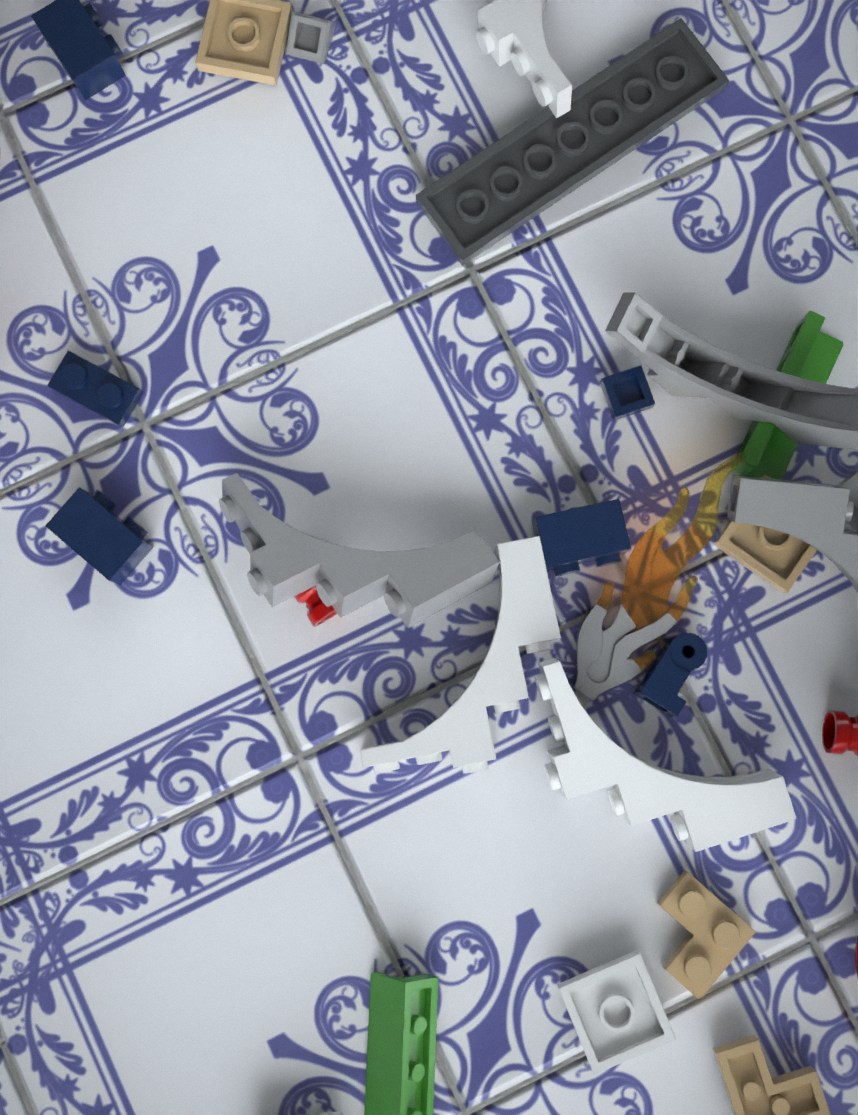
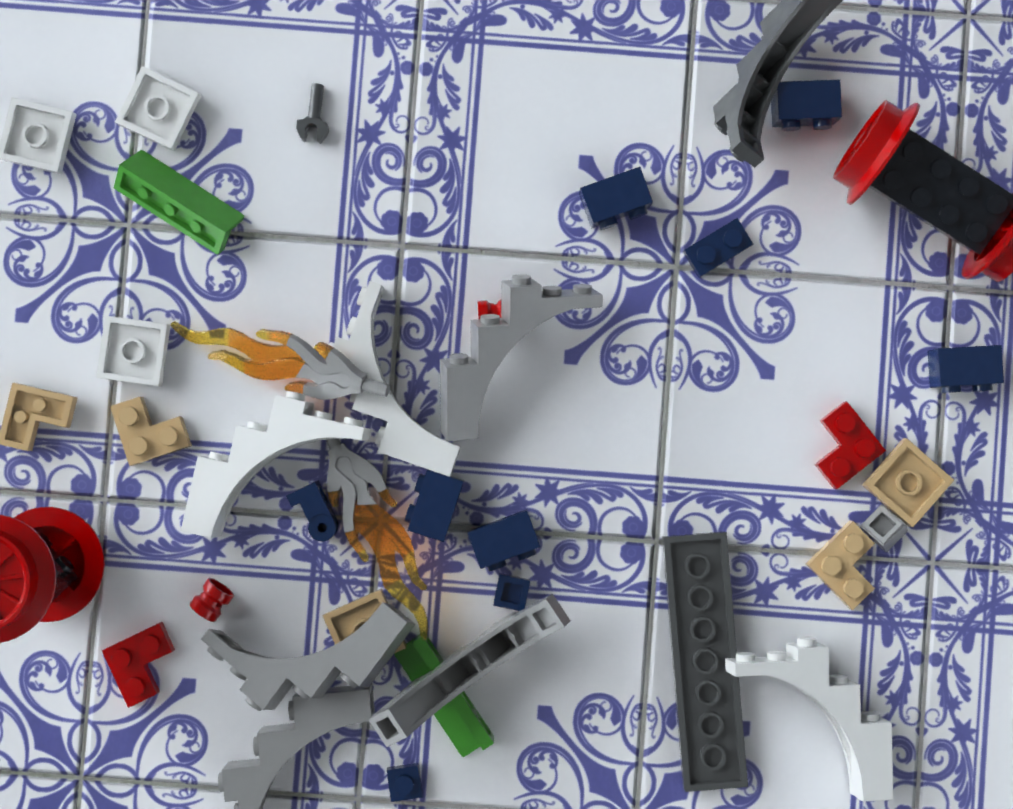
camera: 115 degrees right, 5 degrees up
(200, 959) = (313, 117): none -> dark grey bar
(239, 114) = (856, 446): none -> red plate
(378, 65) = (836, 561): none -> tan plate
(496, 760) = (323, 364): none -> piece
(572, 434) = (504, 540): none -> dark blue brick

